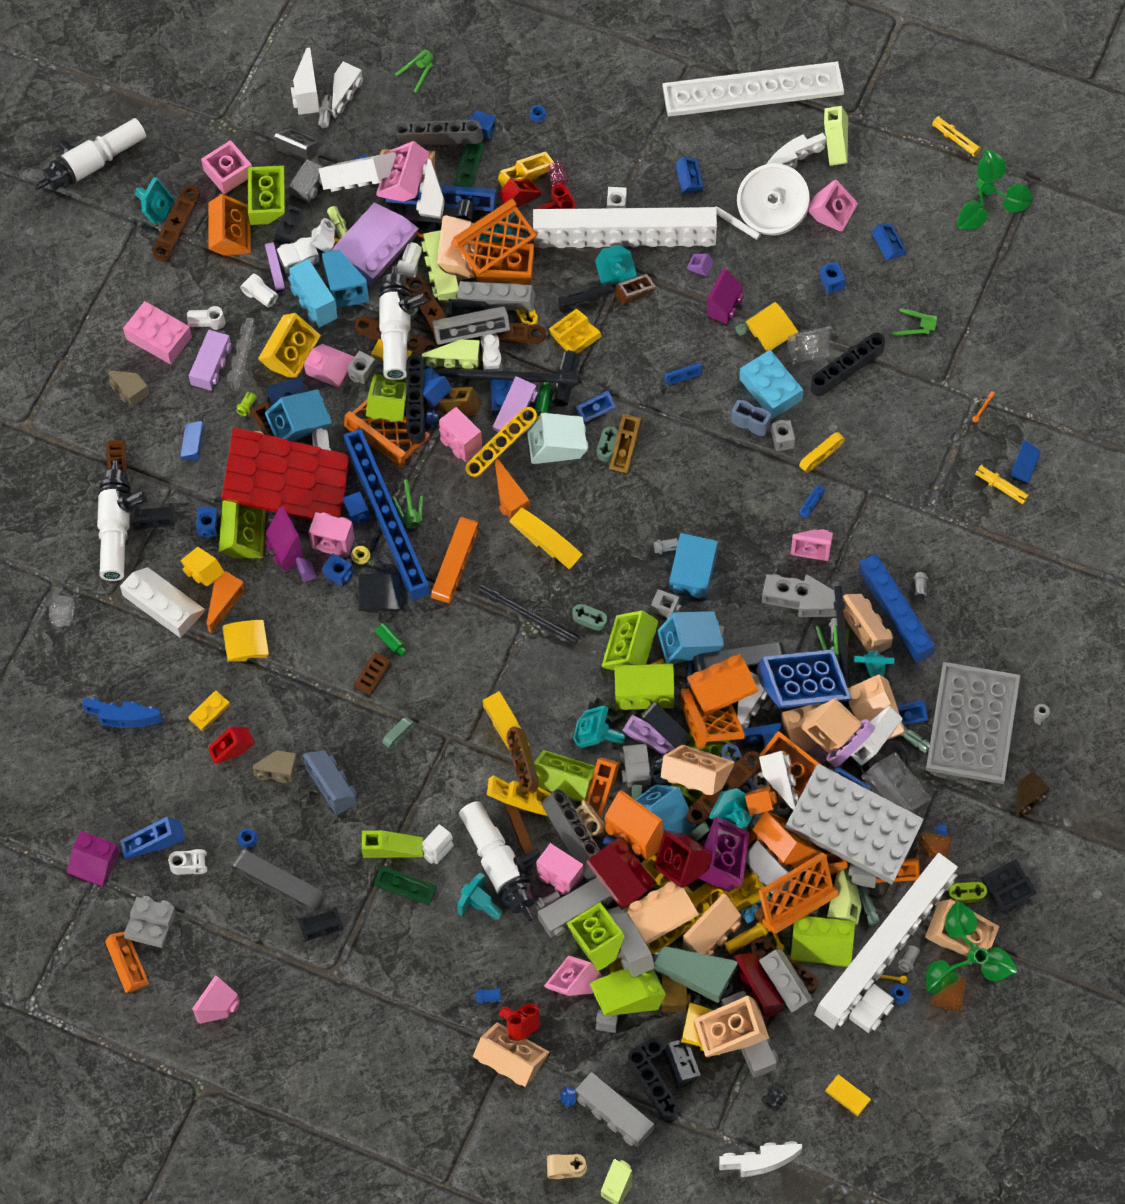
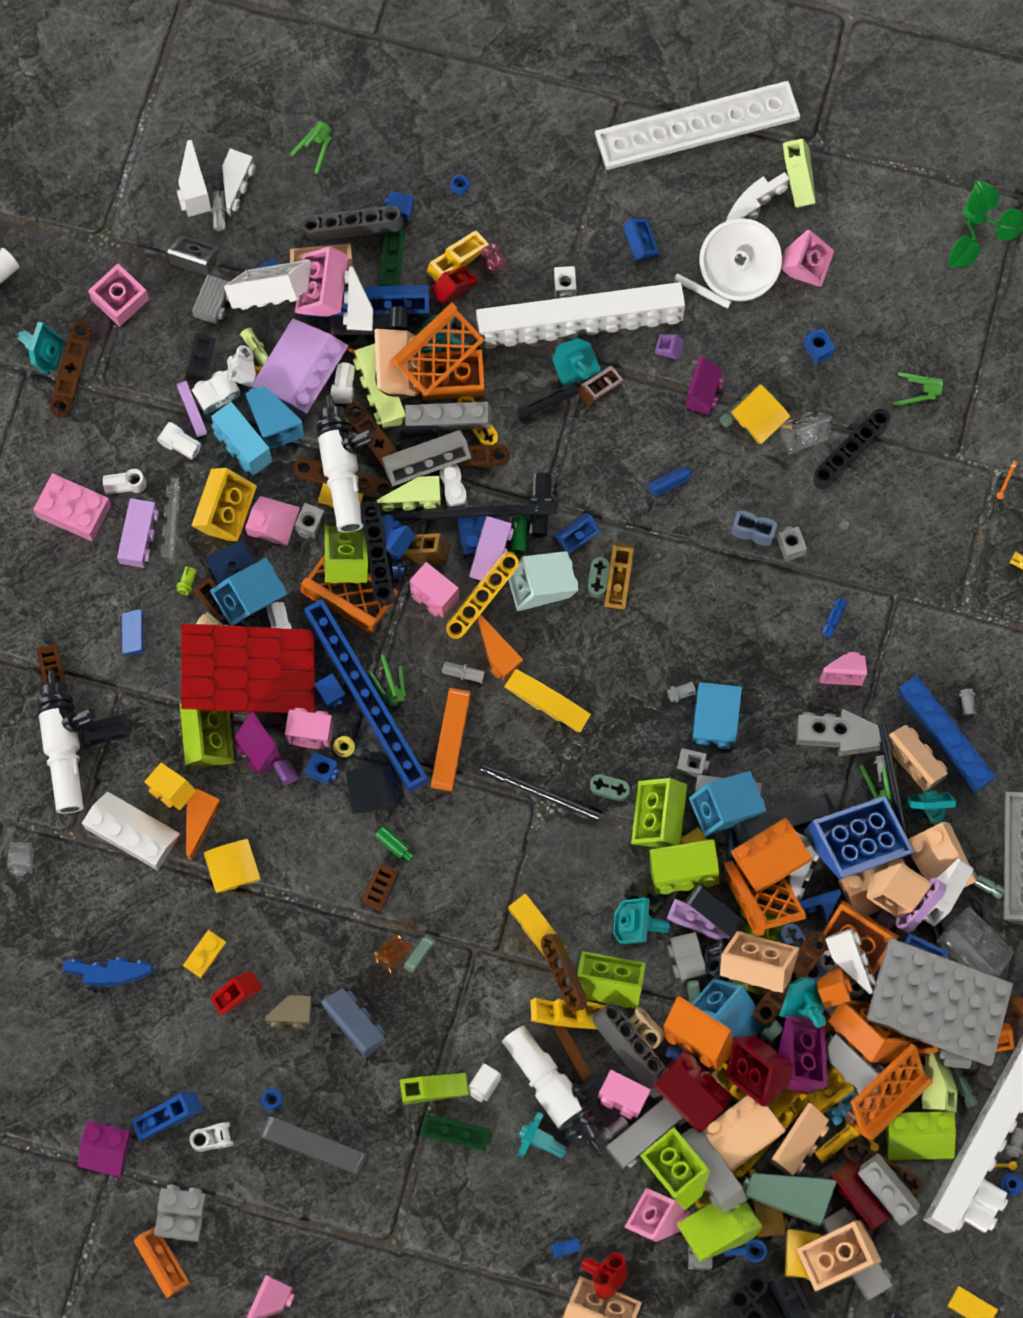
camera: 10 degrees left, 10 degrees up
(130, 386) = (51, 575): dark tan slope -> none
(207, 514) = (163, 721): blue brick -> none
(229, 226) = (132, 366): orange slope -> none
(265, 194) = (168, 323): lime slope -> none
(320, 925) = (368, 1189): black hinge -> none
(373, 729) = (392, 952): none -> clear orange slope
(476, 506) = (463, 672): none -> light grey axle
(560, 202) = (500, 292): red beam -> none
(574, 332) = (541, 447): yellow slope -> none
(602, 784) = (654, 985): orange slope -> none
(654, 1014) = (745, 1250): none -> blue bar
(771, 384) = (770, 484): medium azure brick -> none
(822, 452) = (837, 558): yellow beam -> none
(888, 241) = (874, 293): blue slope -> none
(913, 712) = (980, 852): blue slope -> none
(972, 148) = (912, 142): yellow pin -> none

